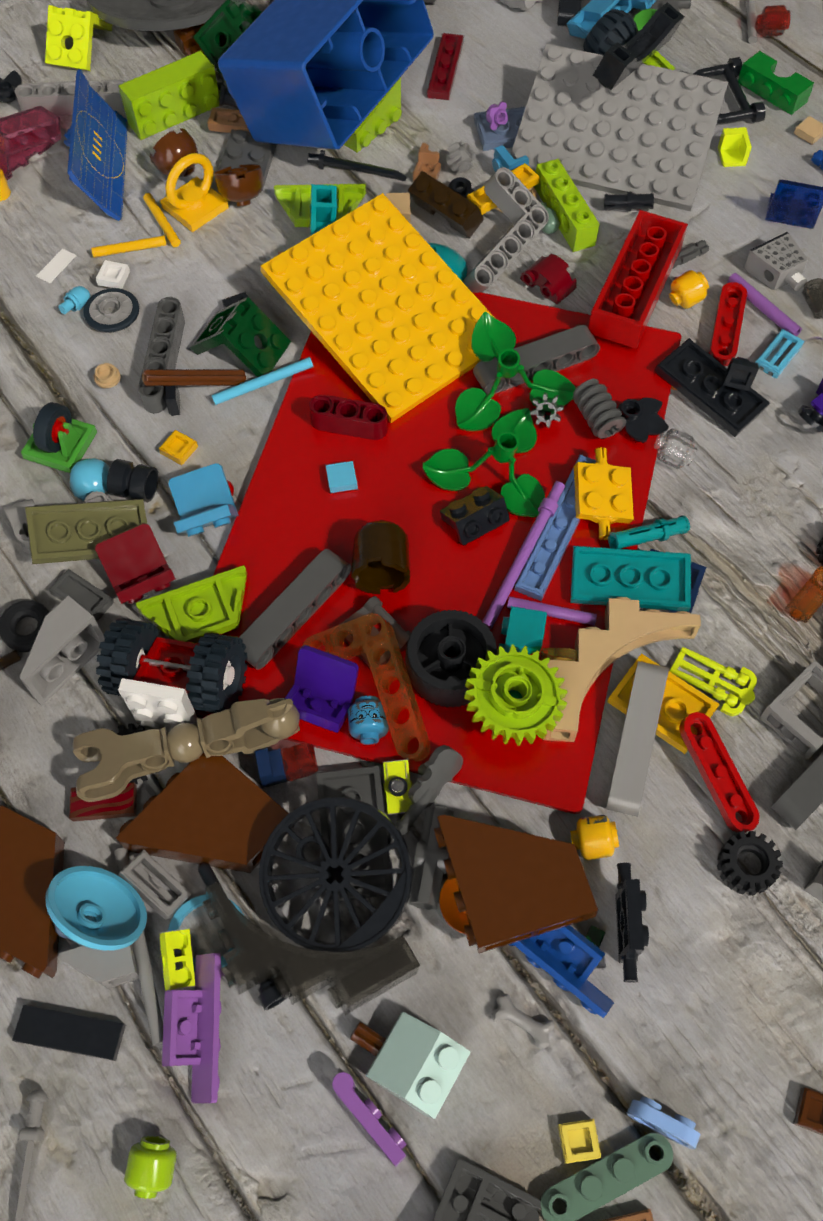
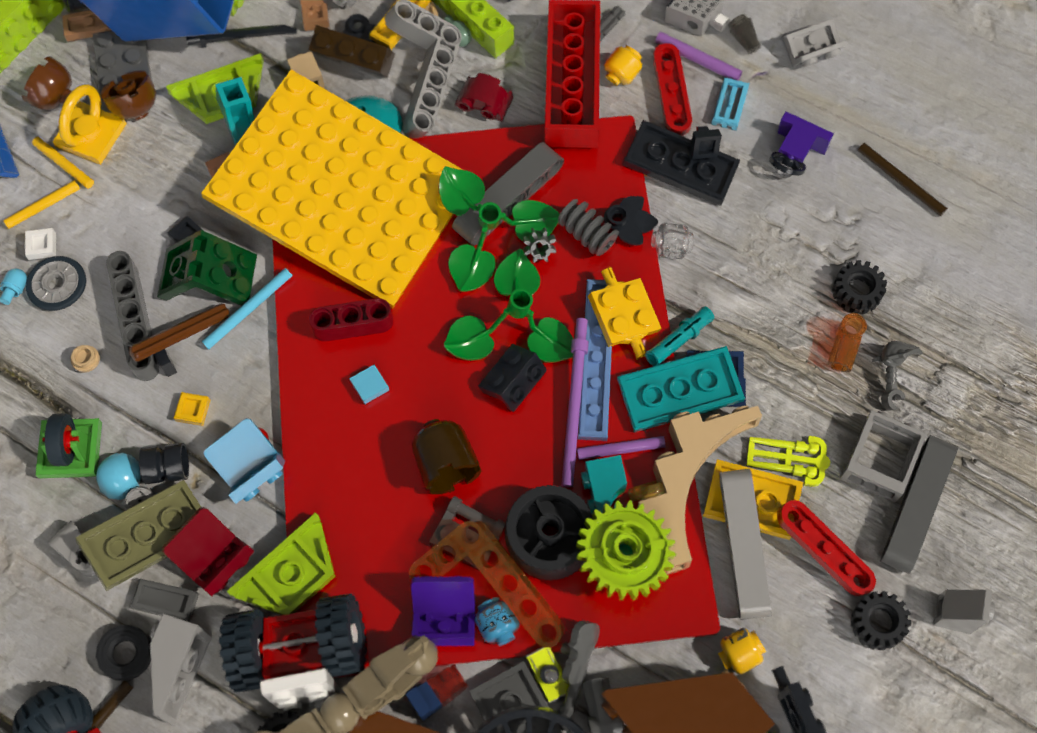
camera: 20 degrees left, 5 degrees up
(294, 607) = (381, 536): dark grey beam -> none

